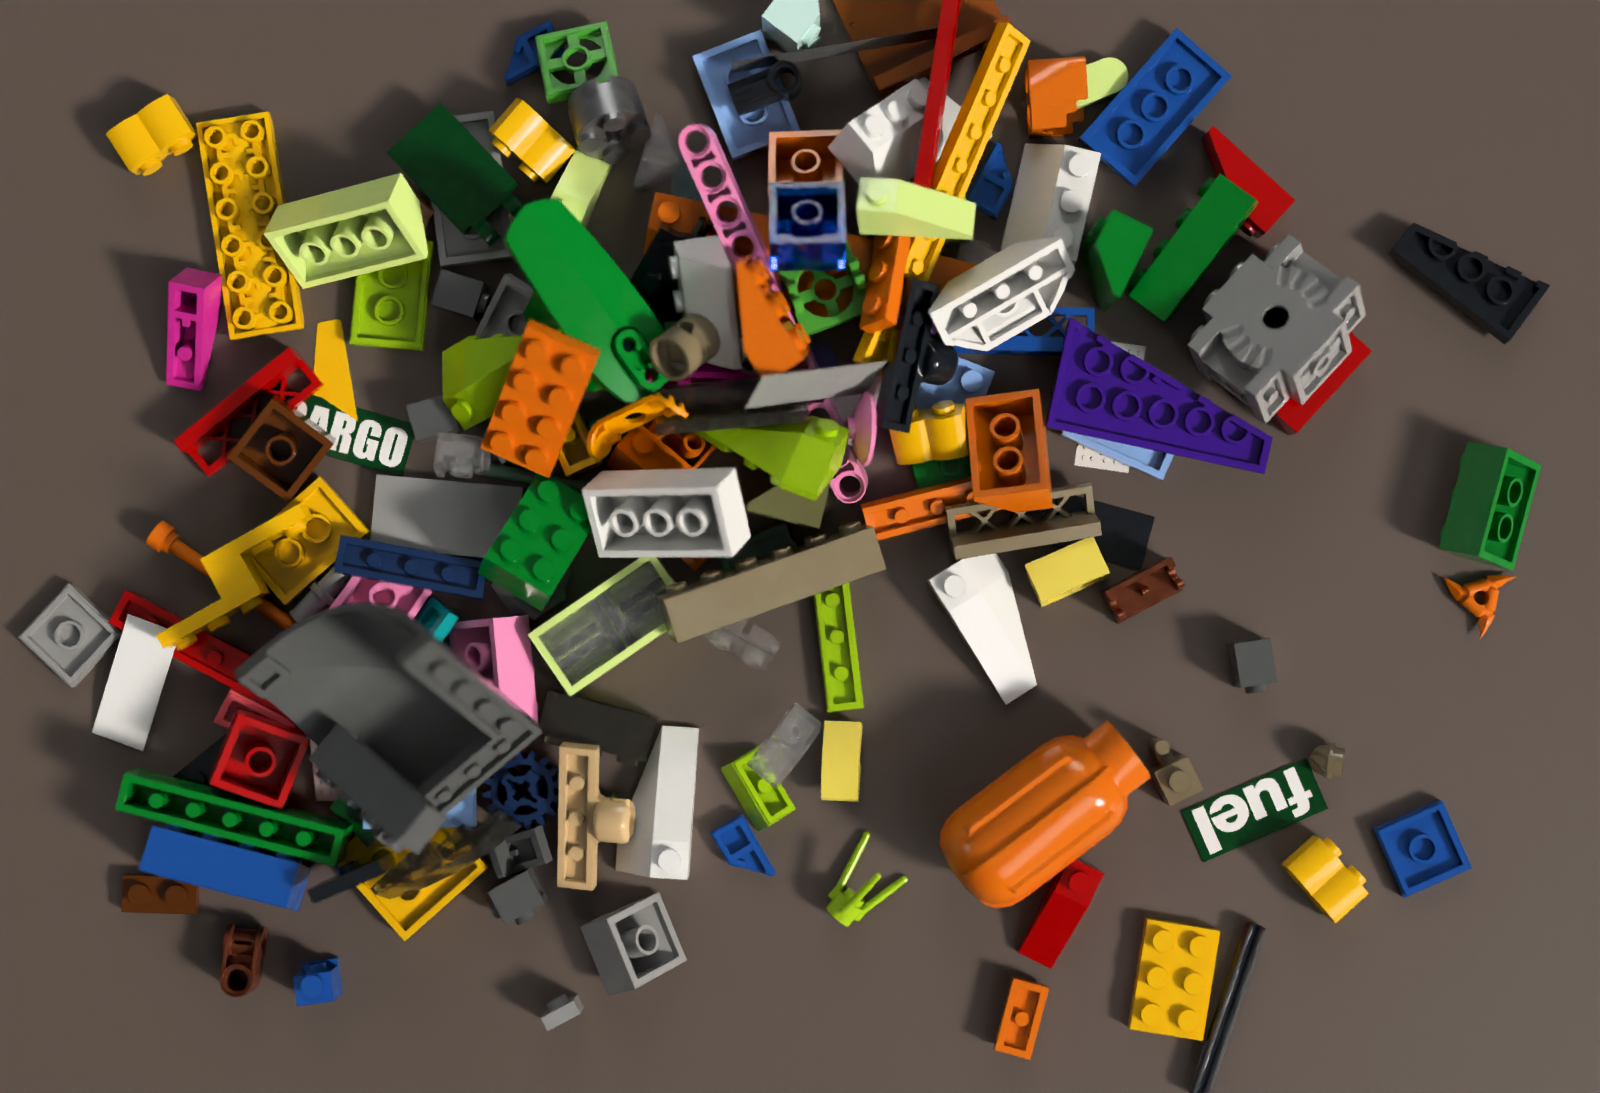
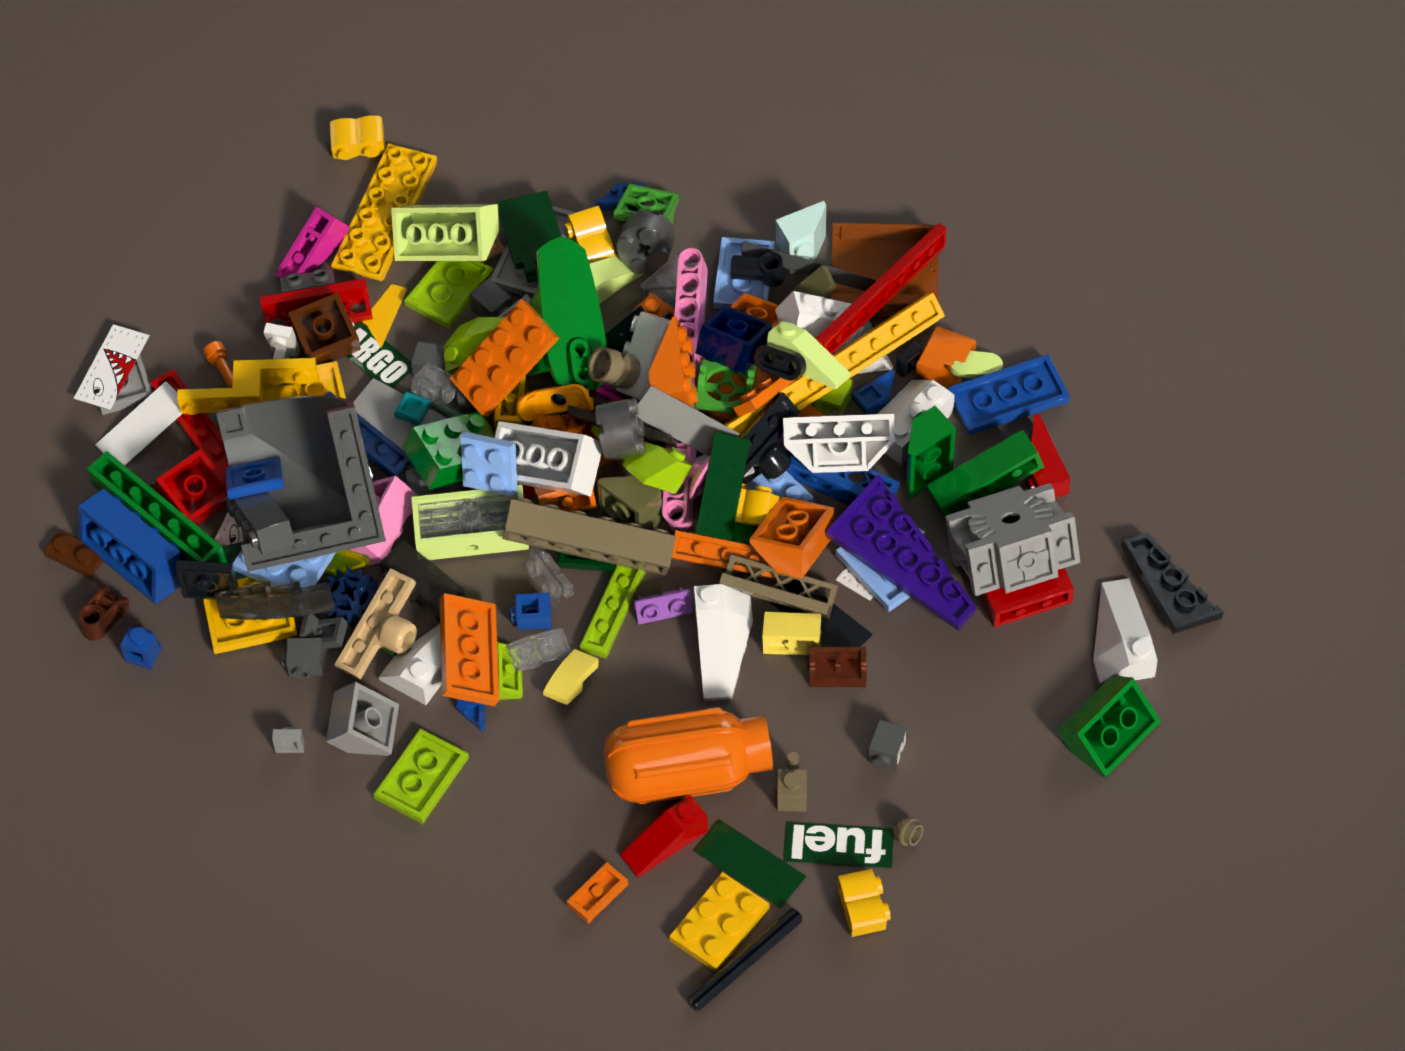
camera: 30 degrees right, 30 degrees down
(47, 622) = (111, 366): none -> white sticker
(217, 382) = (307, 280): none -> dark grey hinge
(238, 494) = (281, 341): none -> white plate
(332, 728) = (254, 478): none -> blue tile
(450, 496) = (412, 408): none -> teal tile
(605, 559) = (489, 464): none -> light blue plate
(709, 798) = (469, 649): none -> orange plate
(737, 970) = (421, 776): none -> lime tile
(749, 447) = (620, 429): none -> flat silver brick
(763, 693) = (532, 611): none -> blue brick
(845, 85) = (818, 283): none -> olive tile
(848, 904) = (521, 765): lime plant -> none
(888, 240) = (782, 362): none -> black plate
(899, 436) = (723, 486): none -> dark green sticker
(908, 599) = (664, 606): none -> medium lavender hinge
(1011, 119) = (908, 359): none -> black tile
(1167, 885) = (750, 863): none -> dark green sticker
(1421, 848) = (944, 921): blue tile -> none
(1450, 381) = (1122, 635): none -> white wedge
(1466, 597) = (1071, 792): orange piece -> none

